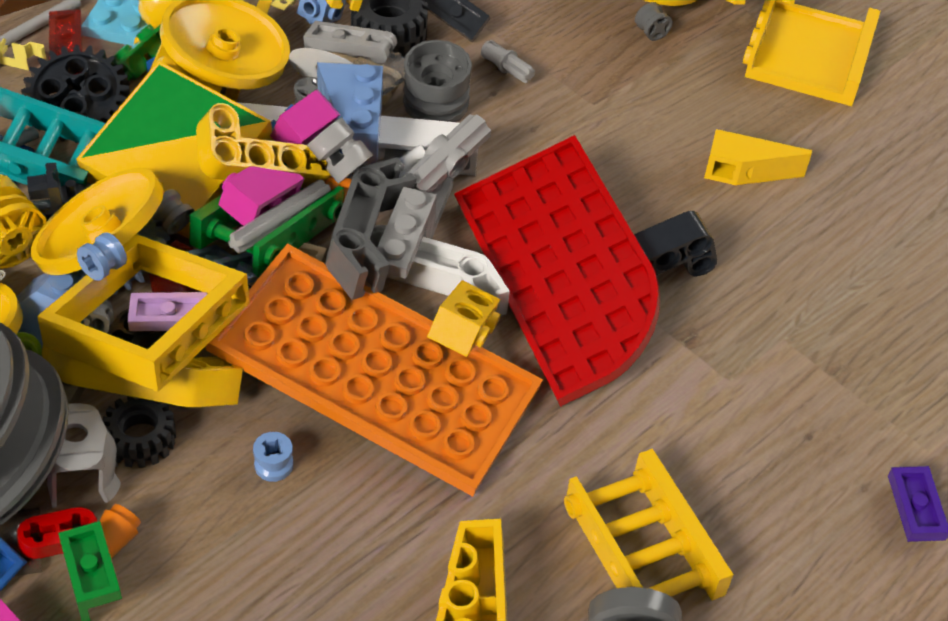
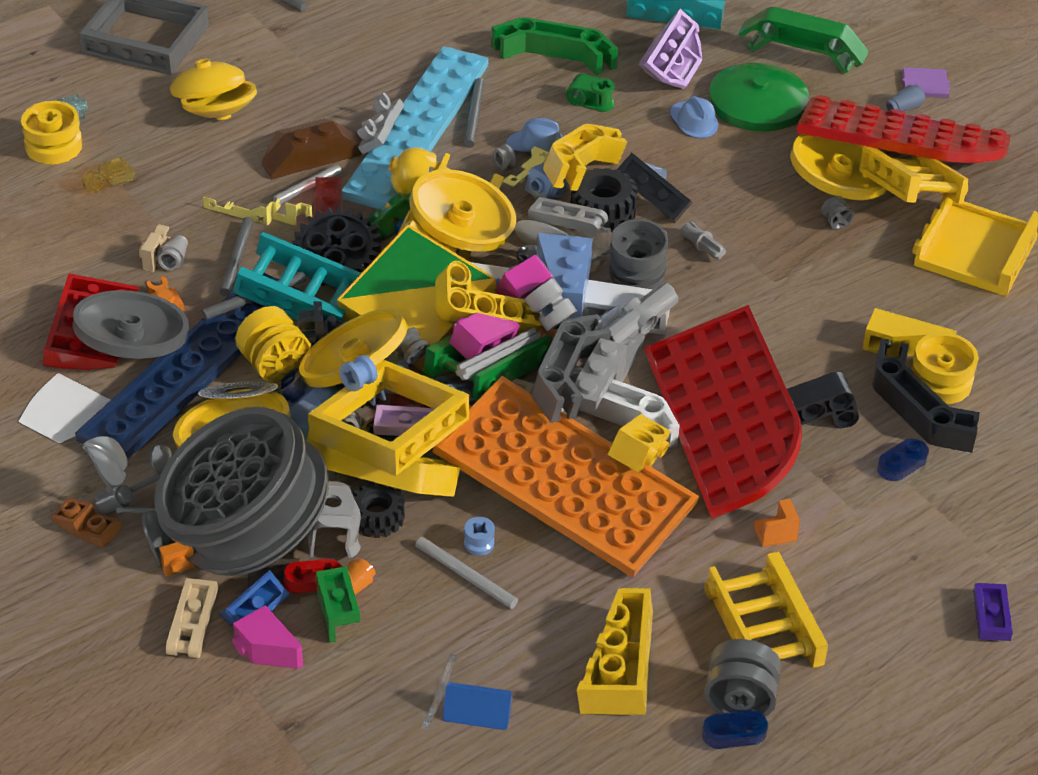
camera: 10 degrees right, 5 degrees down
(22, 274) = (292, 386): none -> plate
(261, 508) = (467, 572): none -> light grey bar
(646, 412) = (779, 529): none -> orange panel
(780, 306) = (903, 459): none -> clear blue plate
(784, 242) = (920, 405): none -> black piece
(805, 196) = (946, 365): none -> yellow wheel

